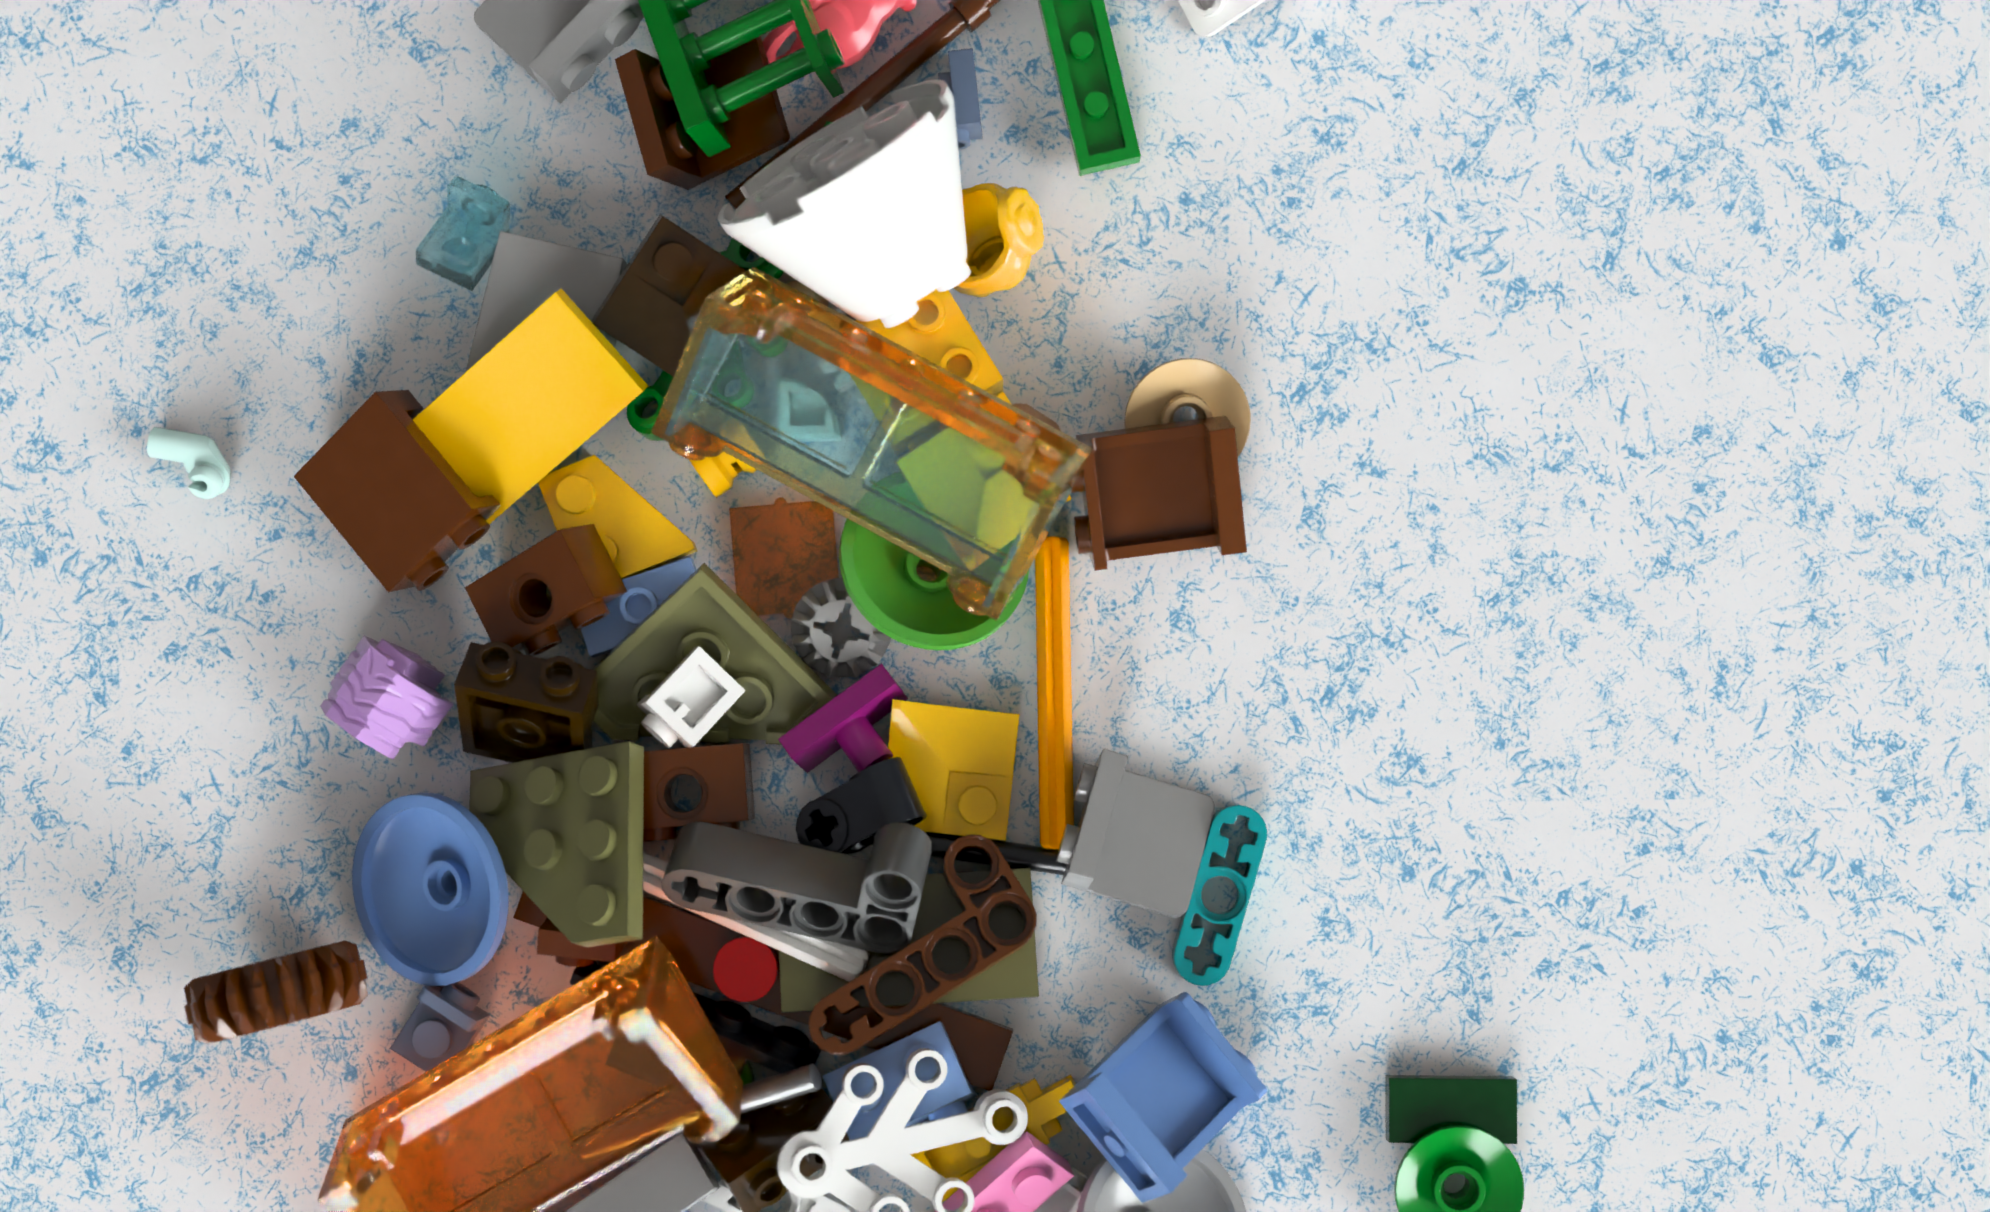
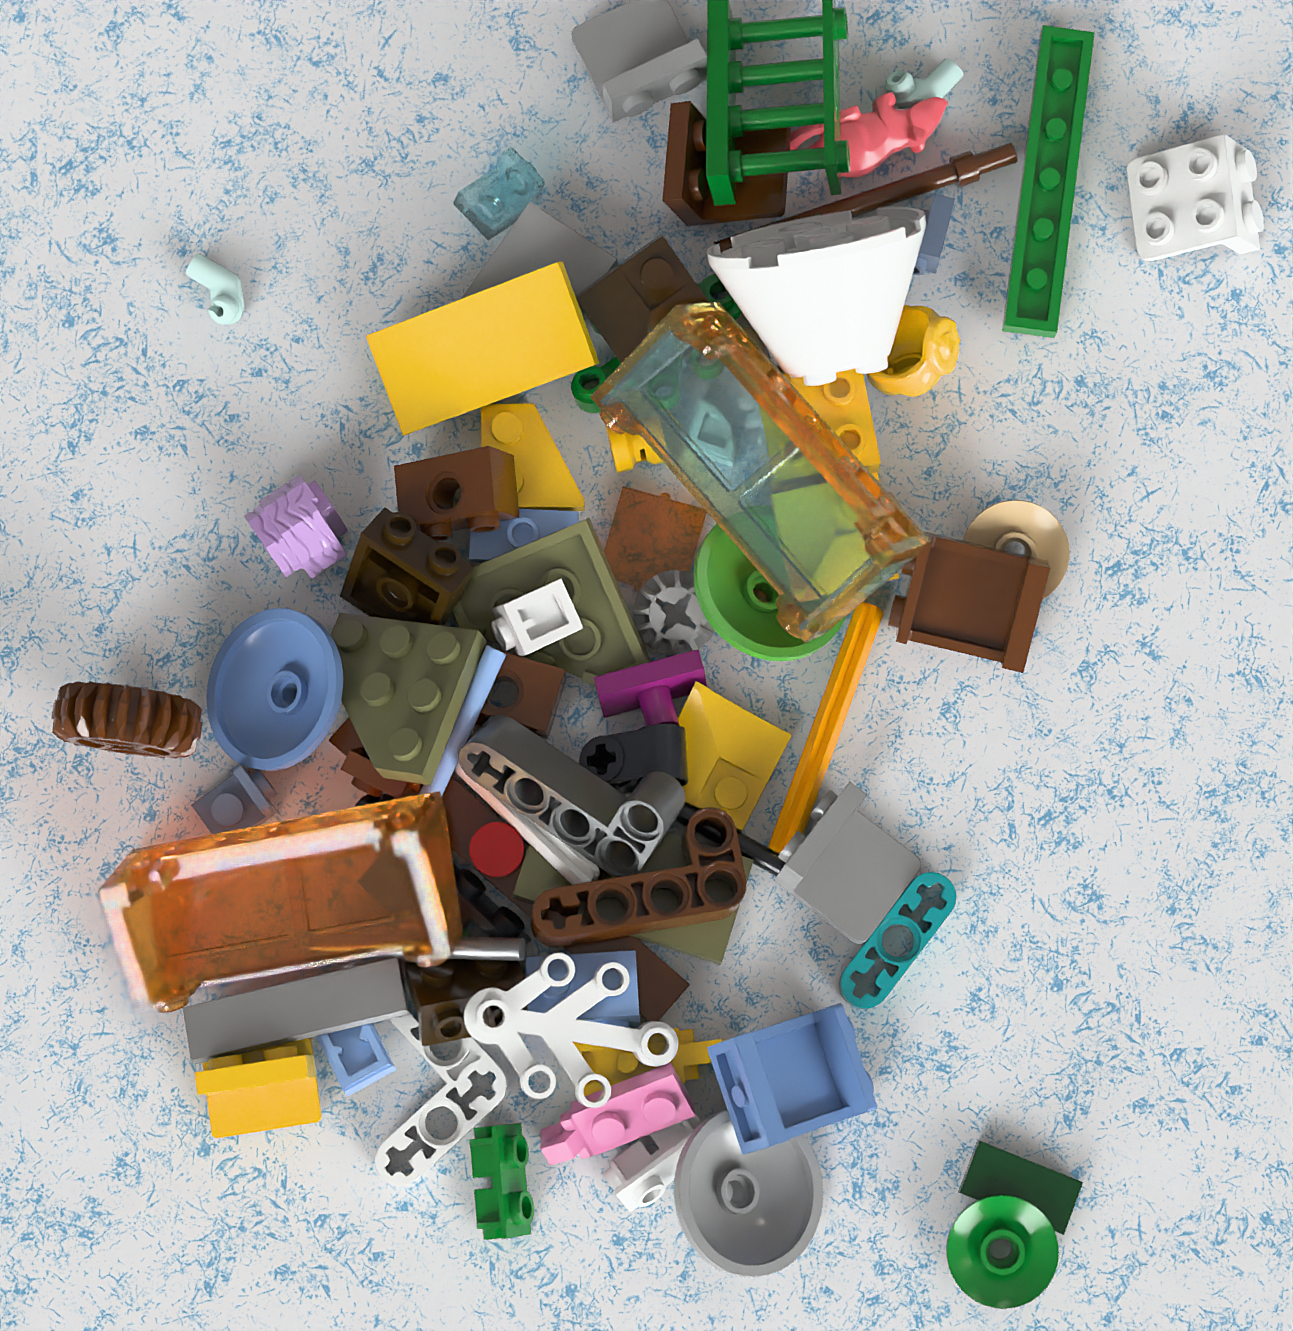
camera: 25 degrees right, 5 degrees down
(395, 494) = (368, 373): reddish brown panel -> none
(655, 826) = (474, 700): none -> light blue bar

